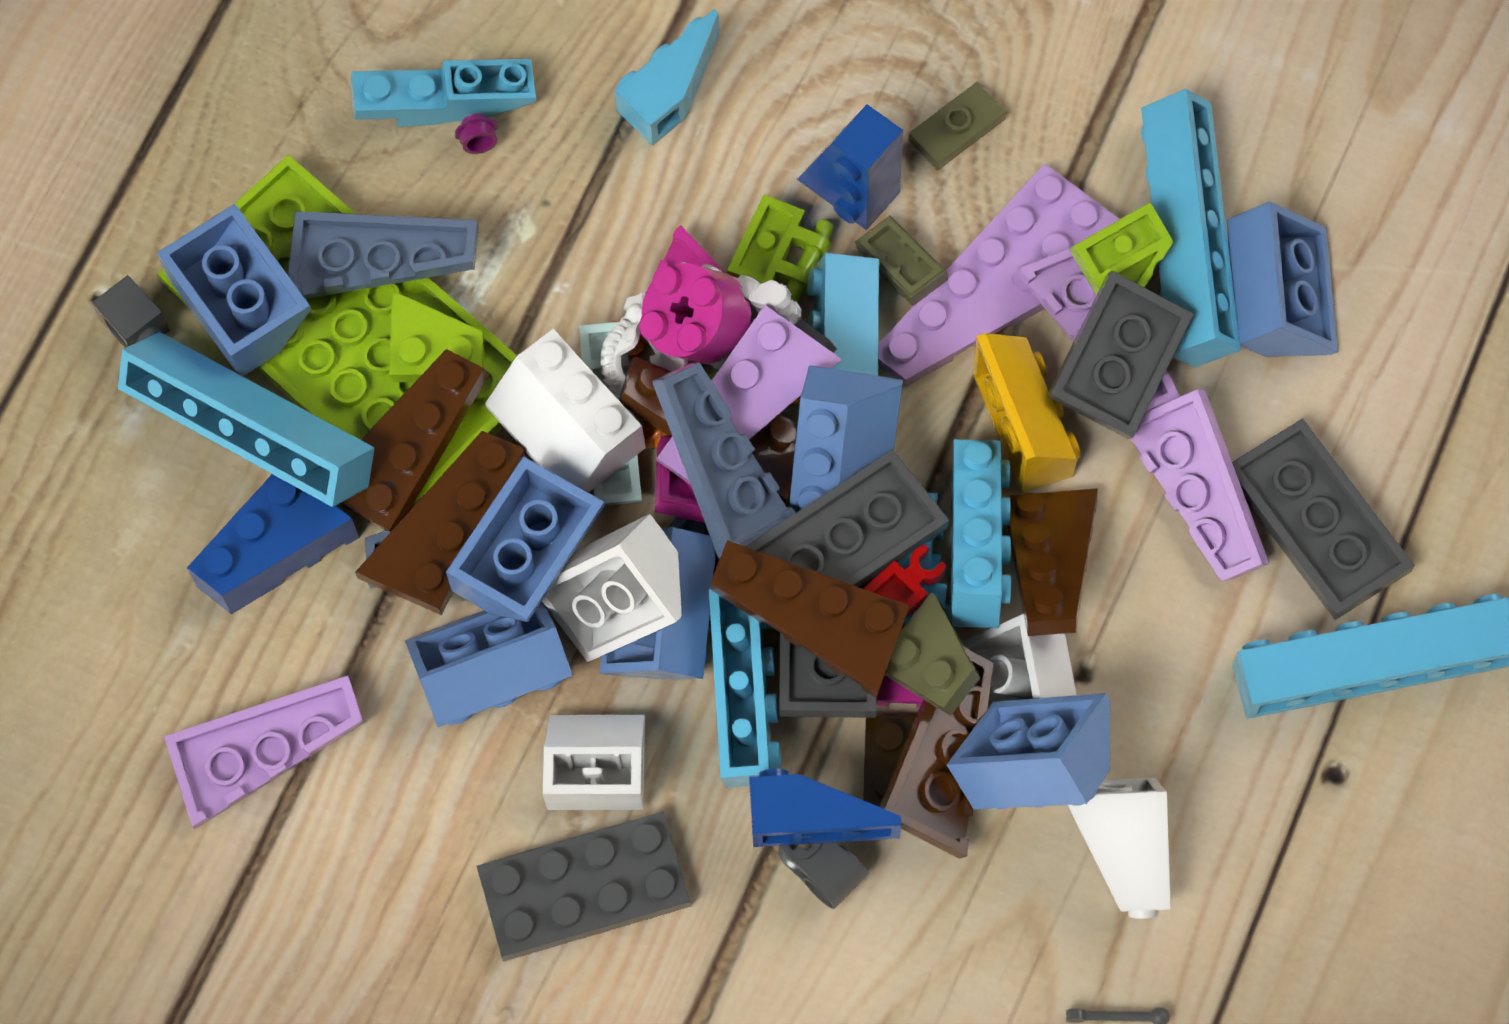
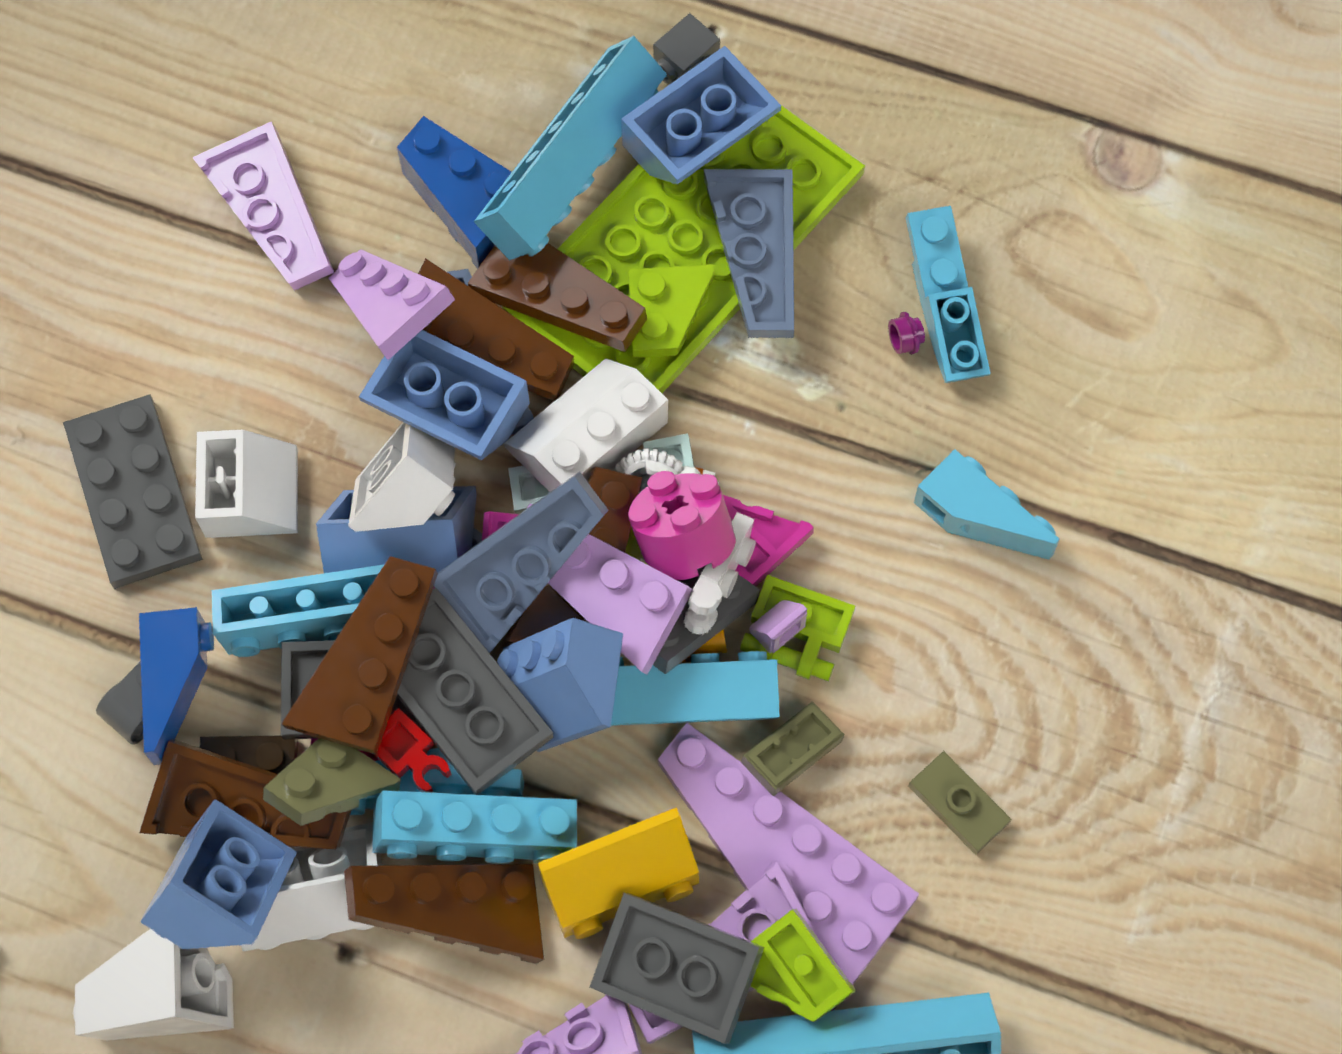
camera: 85 degrees right, 0 degrees up
(414, 592) = (389, 299): none -> lavender wing
(486, 663) = (330, 367): medium blue slope -> none
(783, 255) = (779, 625): none -> lavender slope
(859, 168) = (877, 690): blue wedge -> none

